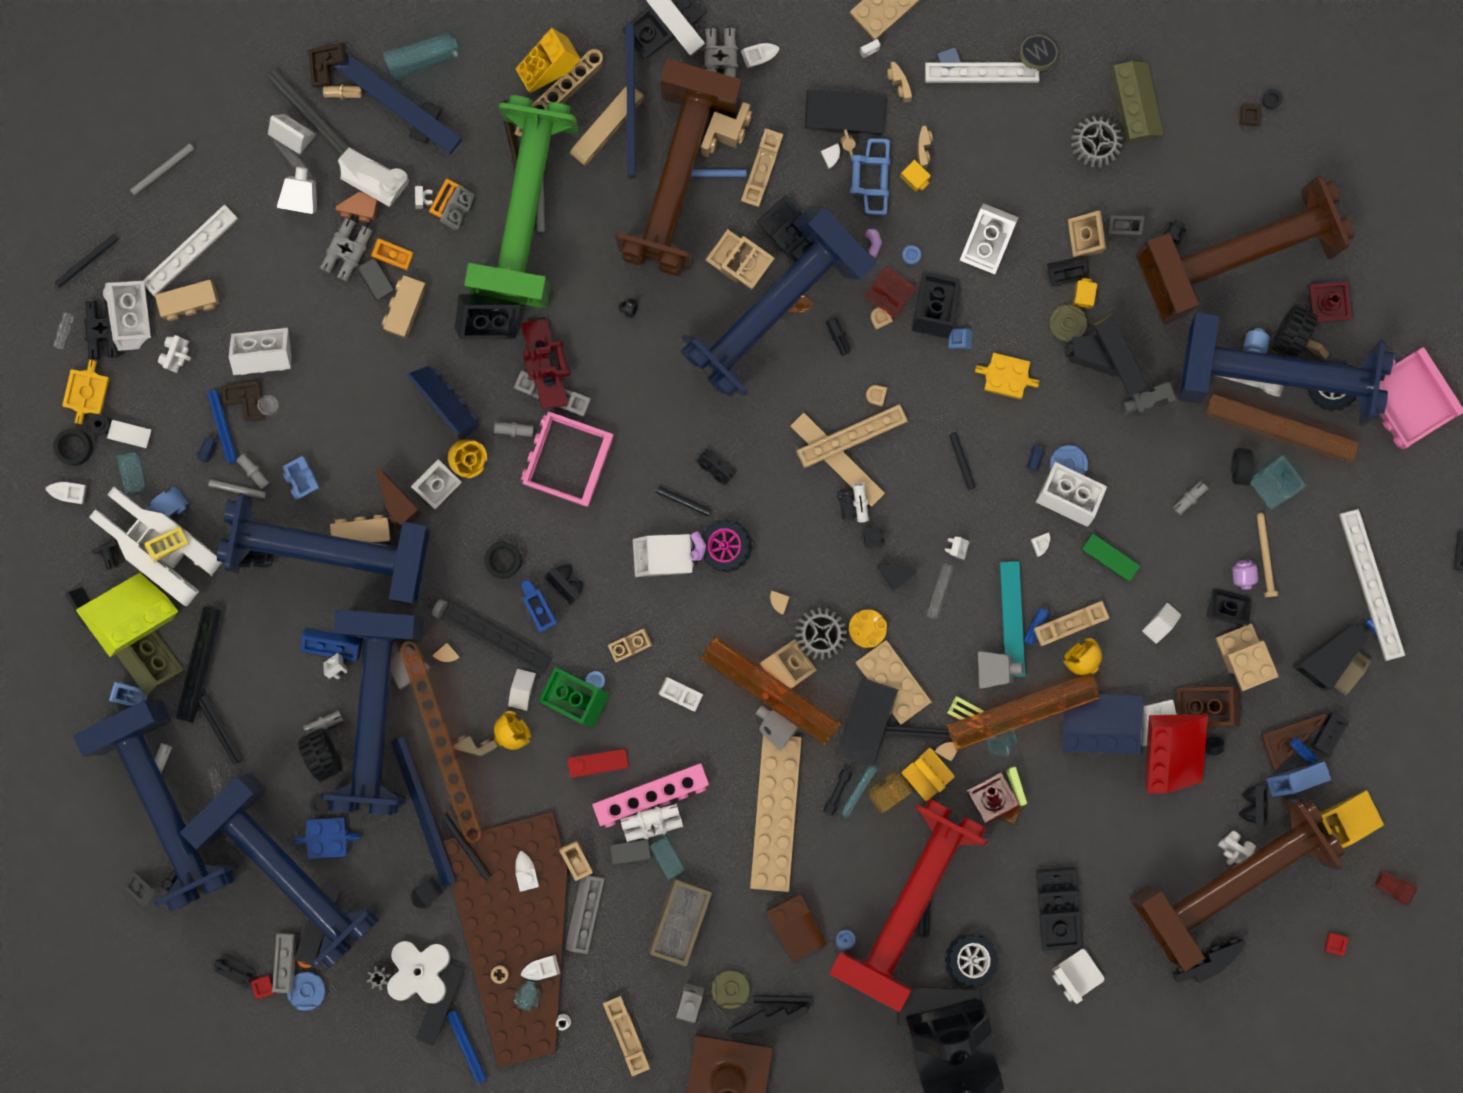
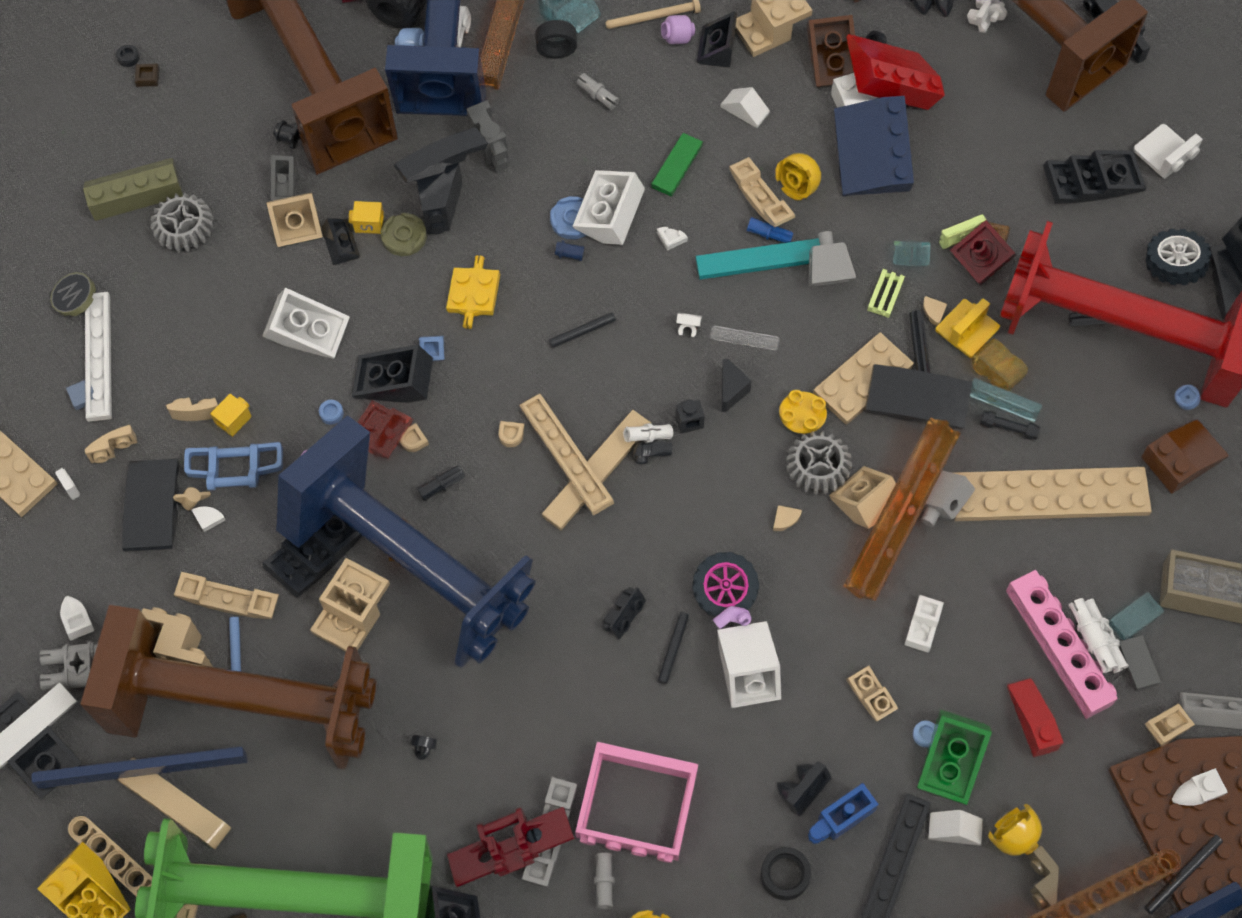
camera: 95 degrees left, 20 degrees down
(1023, 711) = (875, 230): clear orange tile -> none

